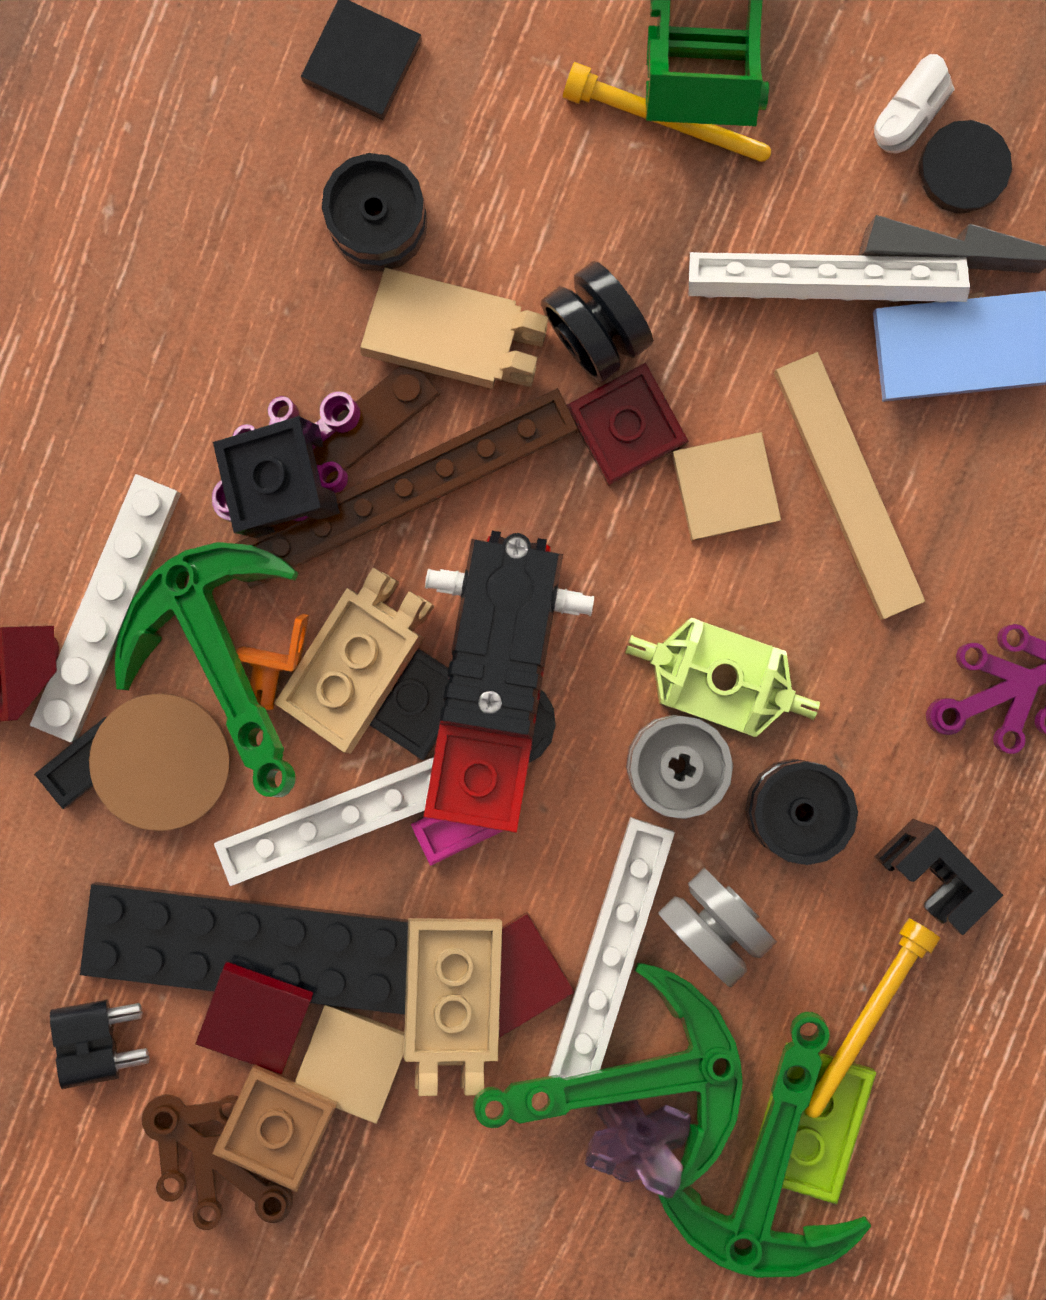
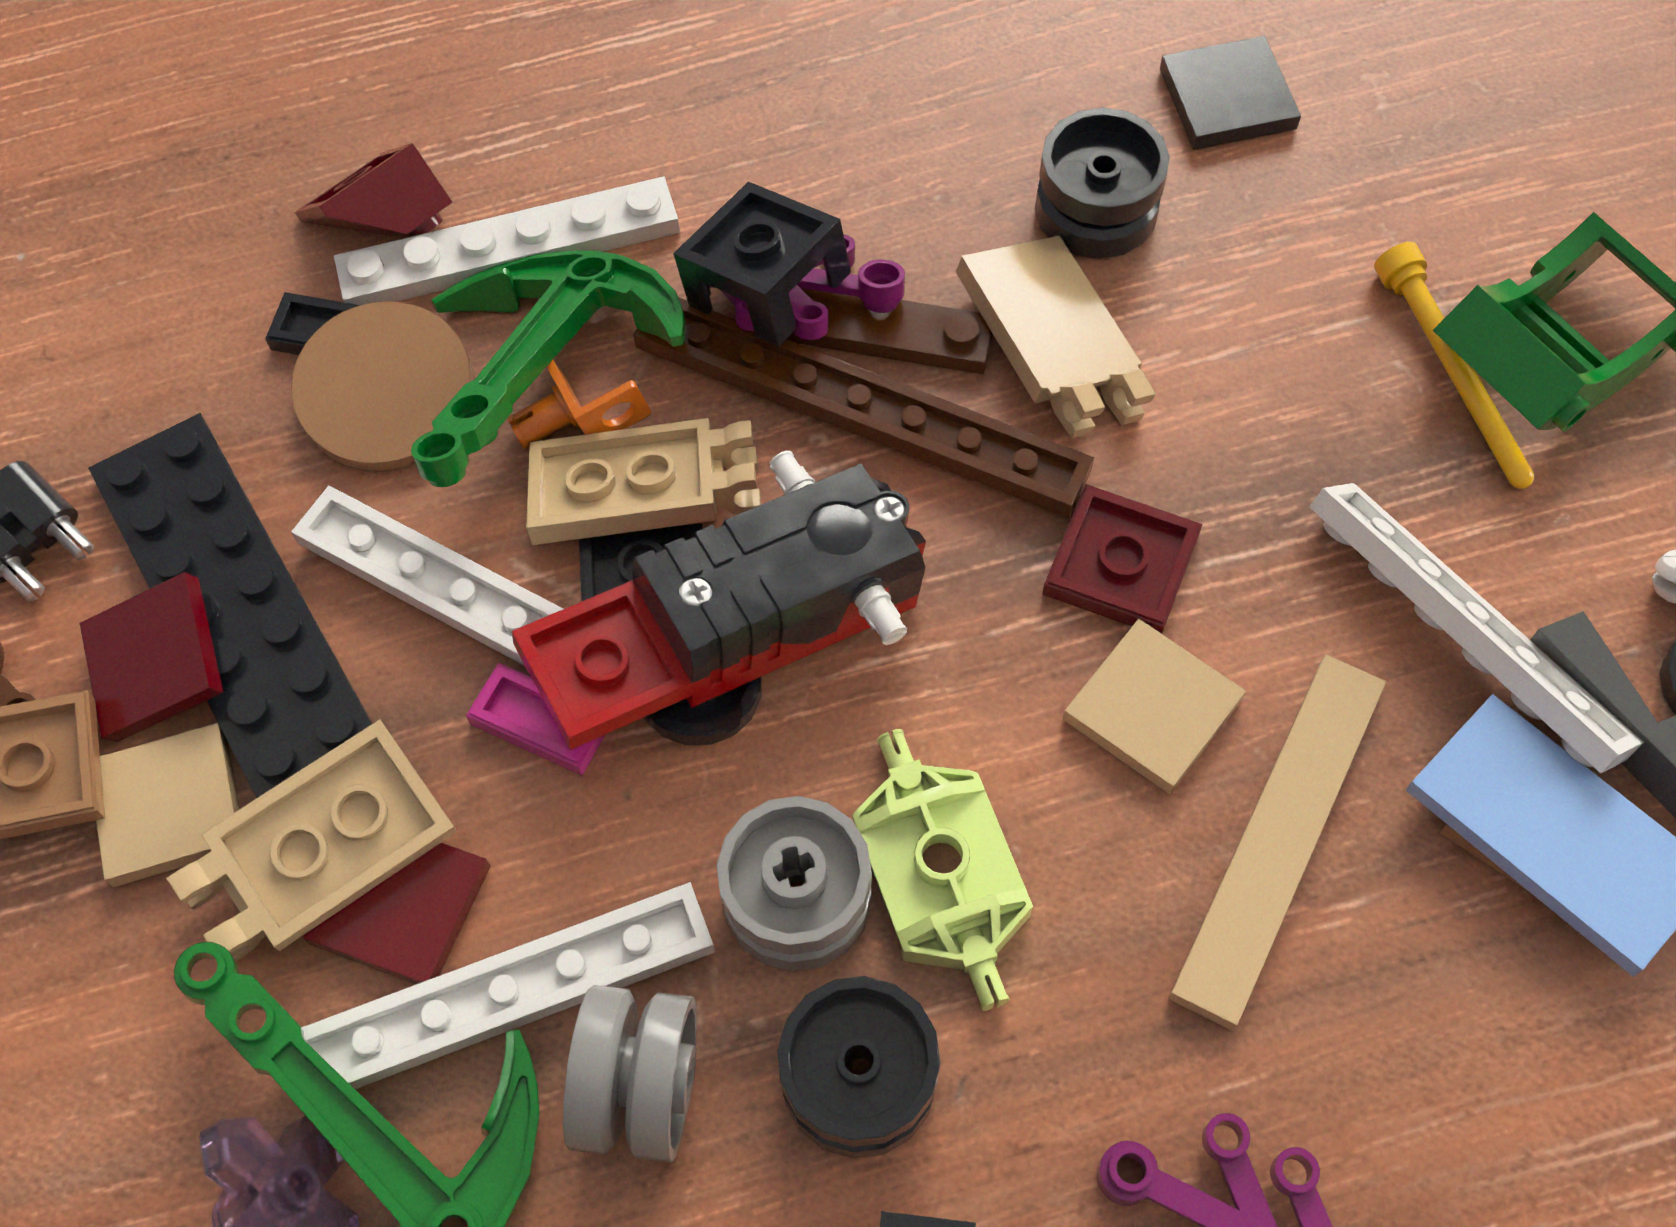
camera: 55 degrees right, 25 degrees down
(597, 321) = (1196, 431): black wheel -> none

